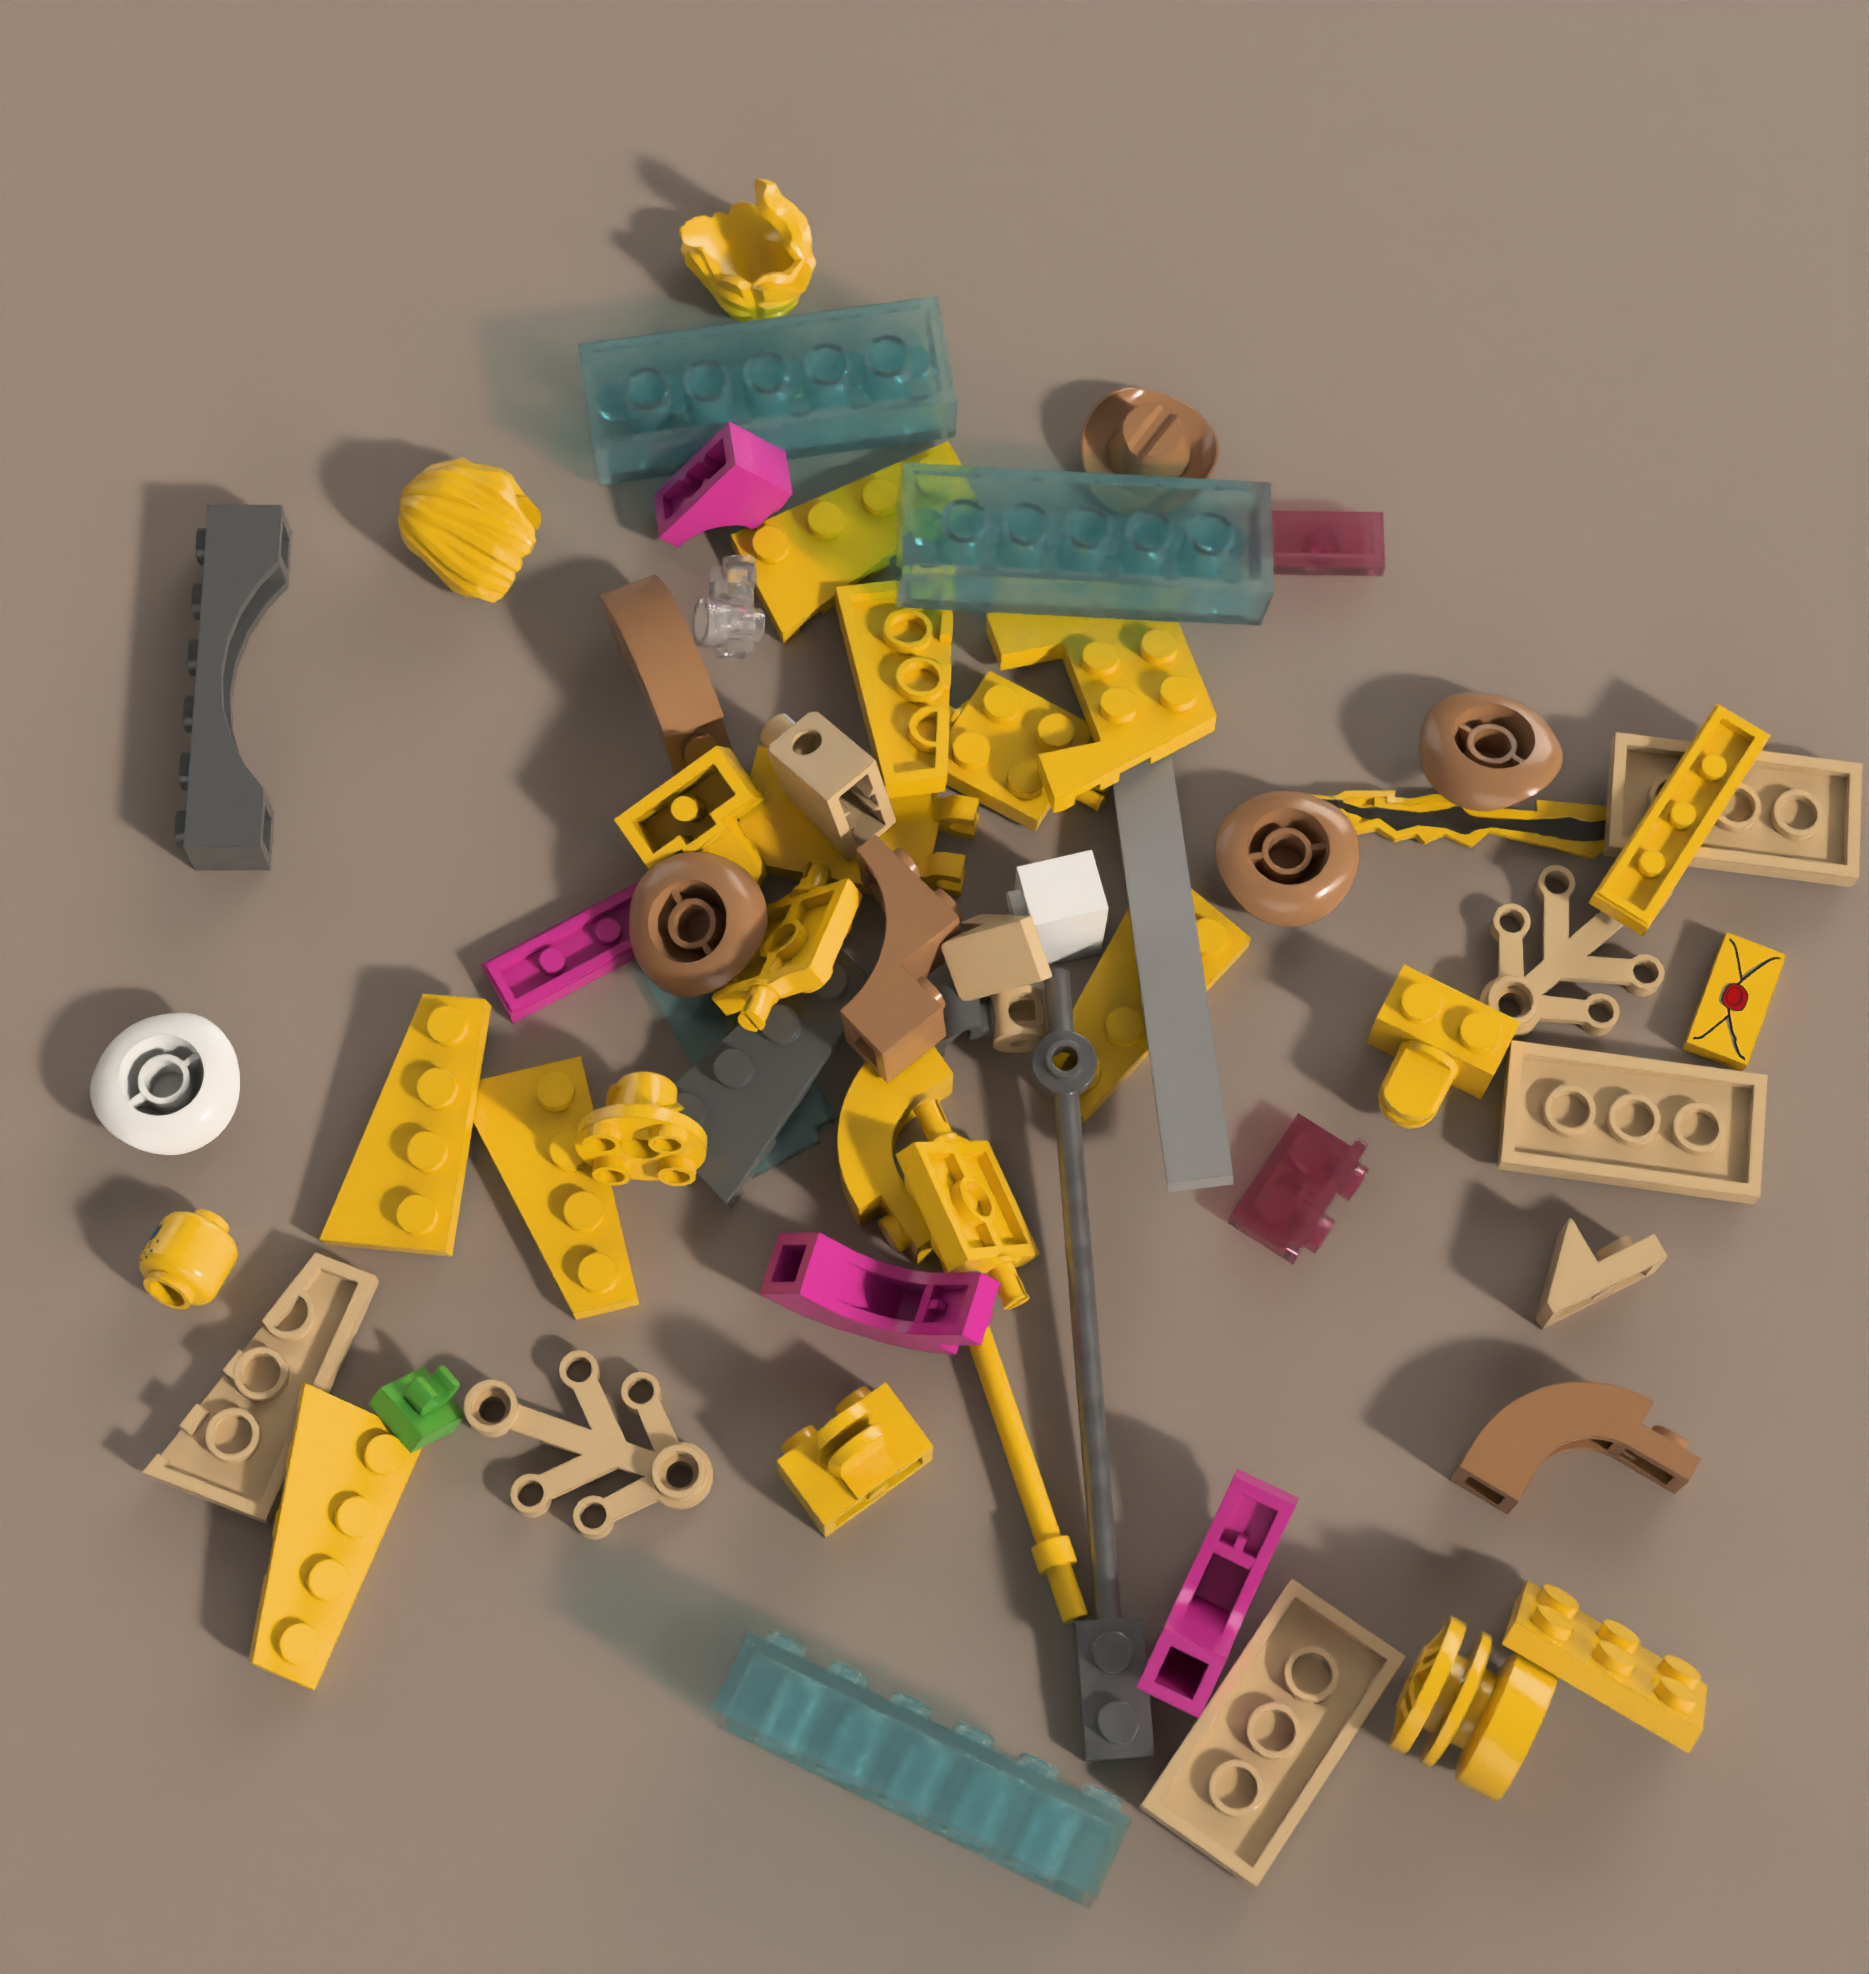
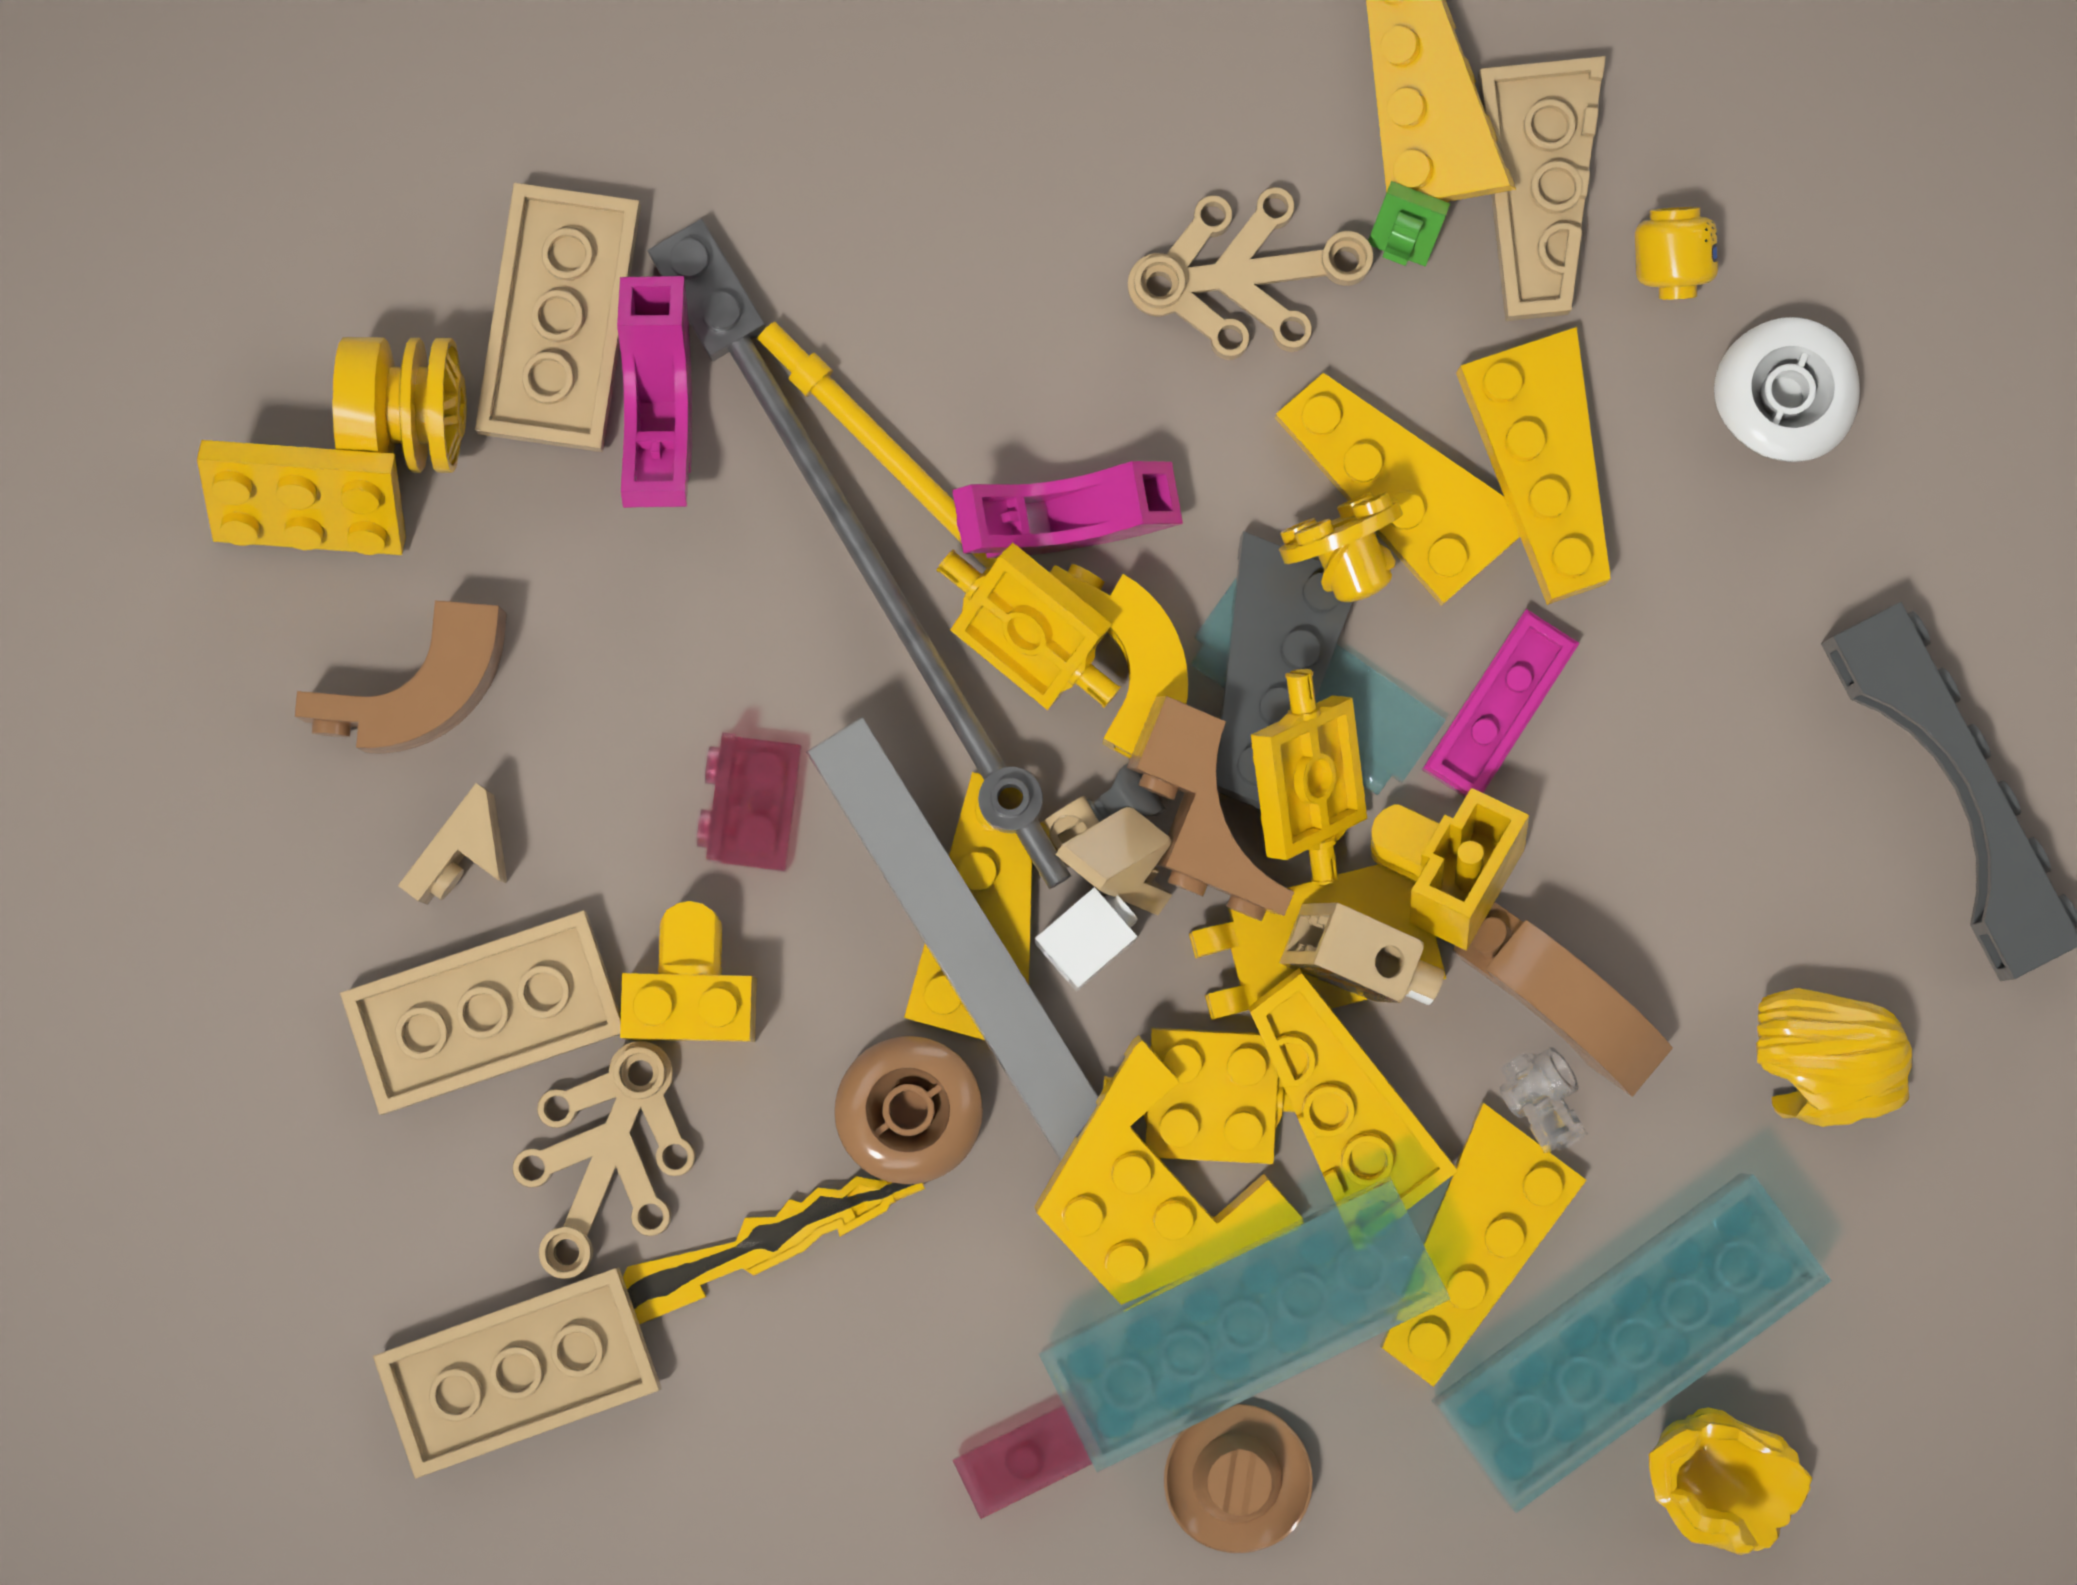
camera: 155 degrees right, 15 degrees up
(696, 922) = (1402, 762): medium nougat hat -> none
(724, 484) = (1616, 1215): dark pink arch -> none
(853, 1457) = (1018, 367): yellow brick -> none
(920, 1768) = (827, 130): clear light blue brick -> none
(1487, 751) = (768, 1309): medium nougat hat -> none
(1679, 819) = (560, 1326): yellow tile -> none
(1734, 1002) = (439, 1182): yellow tile -> none

